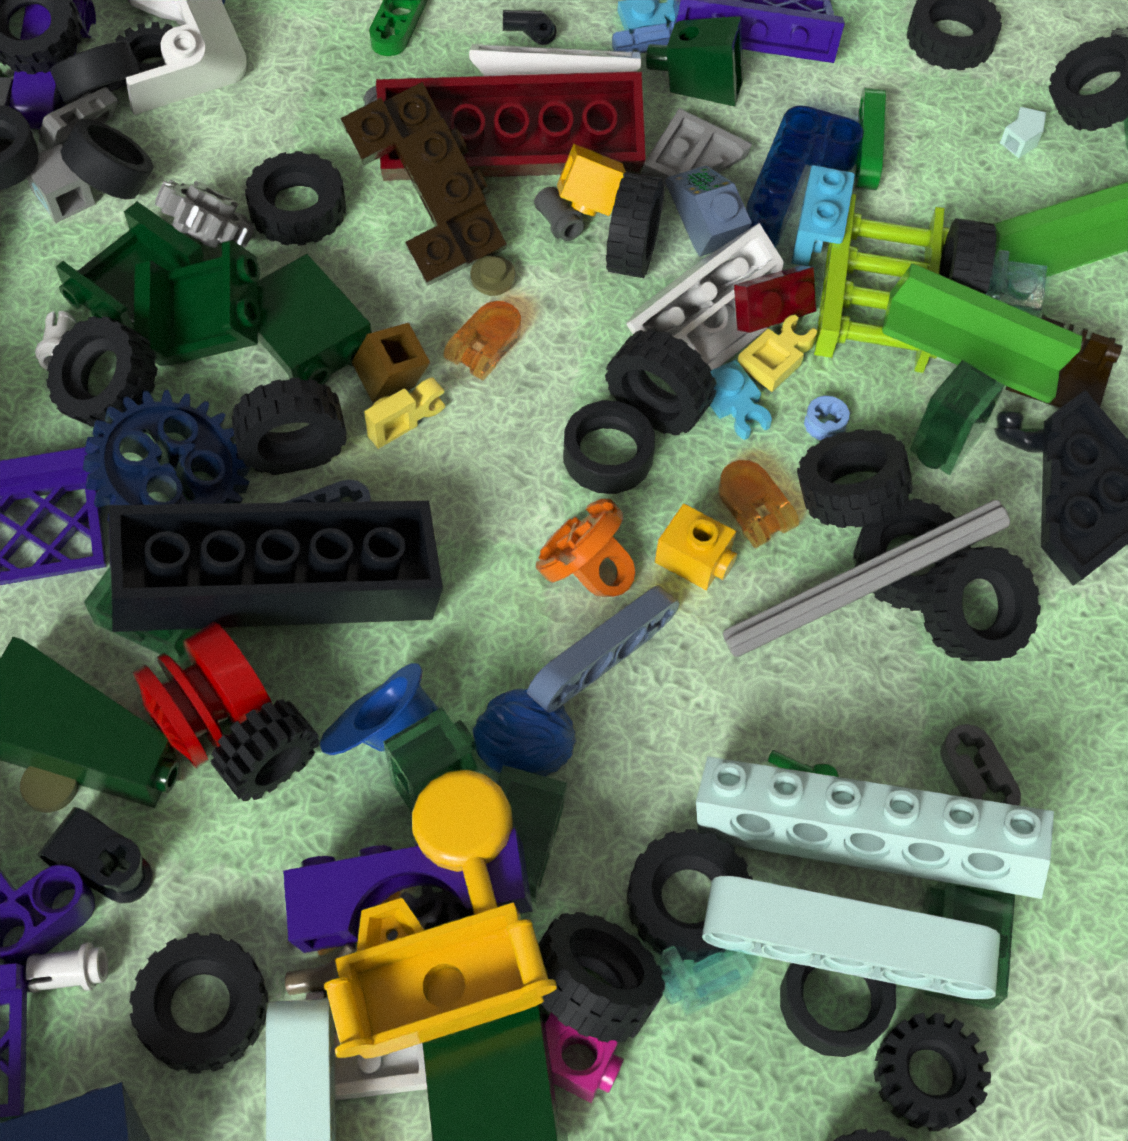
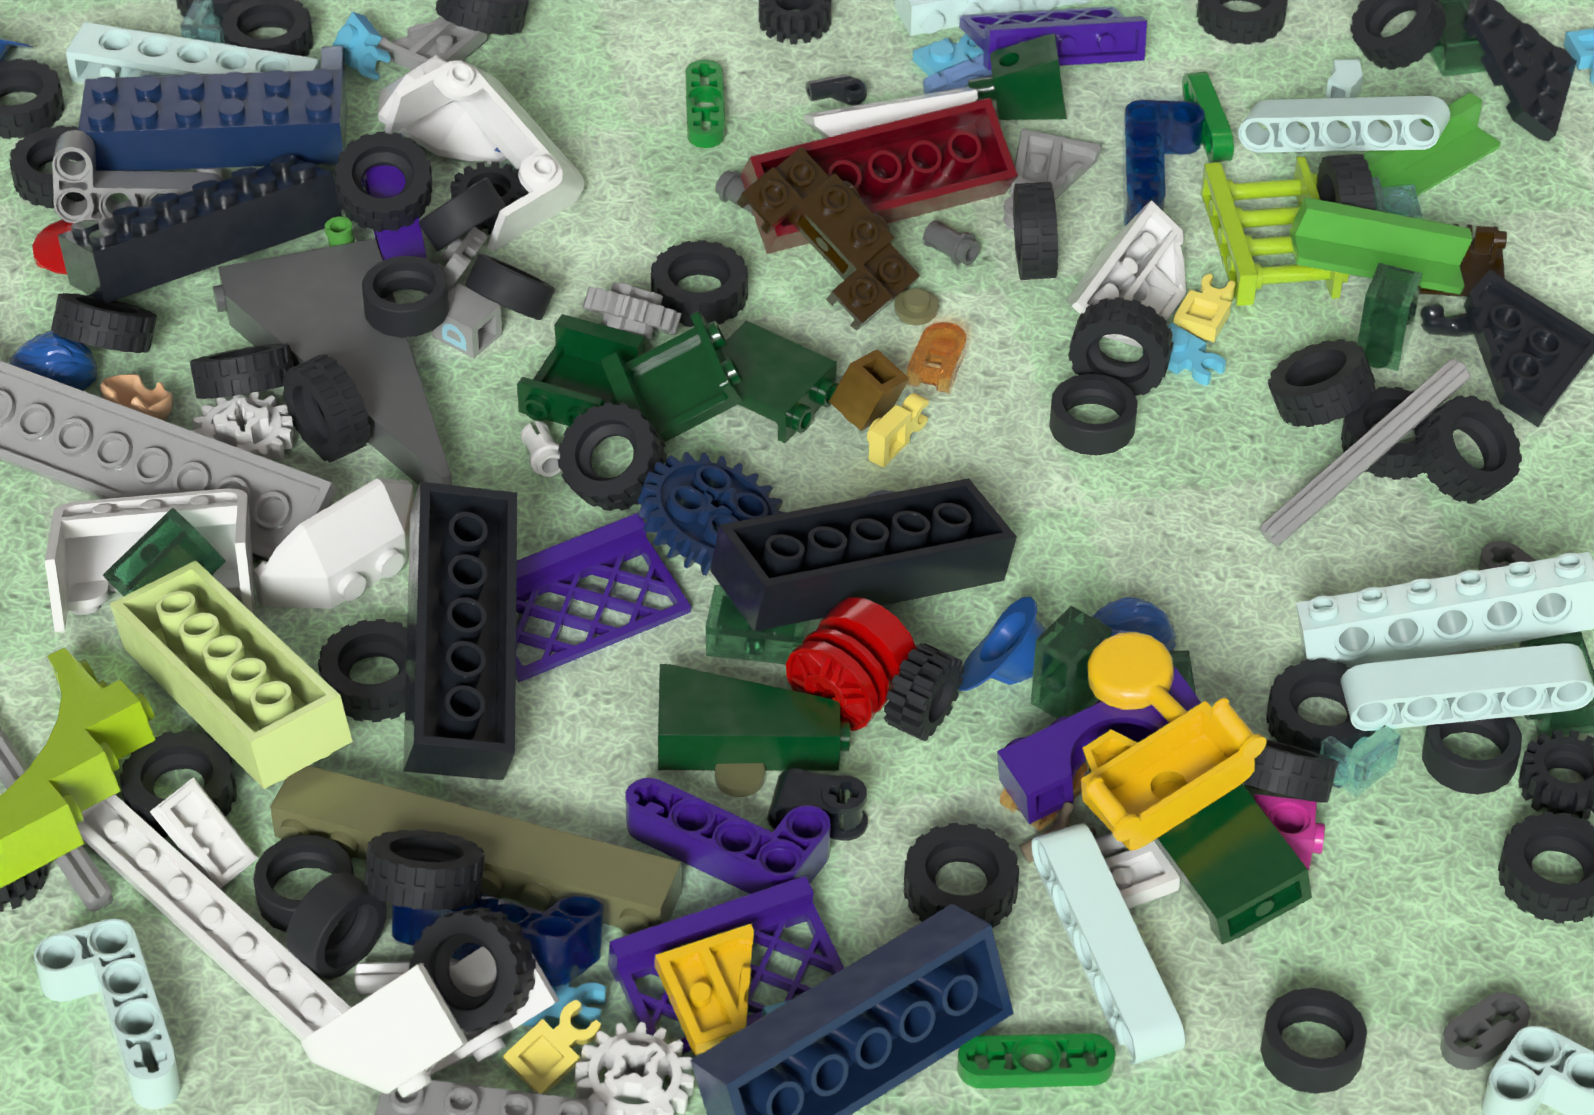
camera: 15 degrees left, 15 degrees down
(68, 968) = (841, 885): white pin -> none
(285, 404) = (795, 439): black tyre -> none
(583, 545) = (1117, 488): orange tile -> none
(590, 181) = (978, 204): yellow brick -> none
(602, 649) = (1170, 553): sand blue beam -> none
(696, 547) = (1209, 469): yellow brick -> none
(708, 208) = (1093, 206): sand blue slope -> none
(748, 486) = (1231, 417): clear orange plate -> none
(774, 298) = (1186, 263): dark red plate -> none
(822, 212) = (1194, 185): medium azure bracket -> none
(823, 406) = (1265, 342): light blue bush -> none
(1001, 183) = (1361, 116): none -> light aqua beam

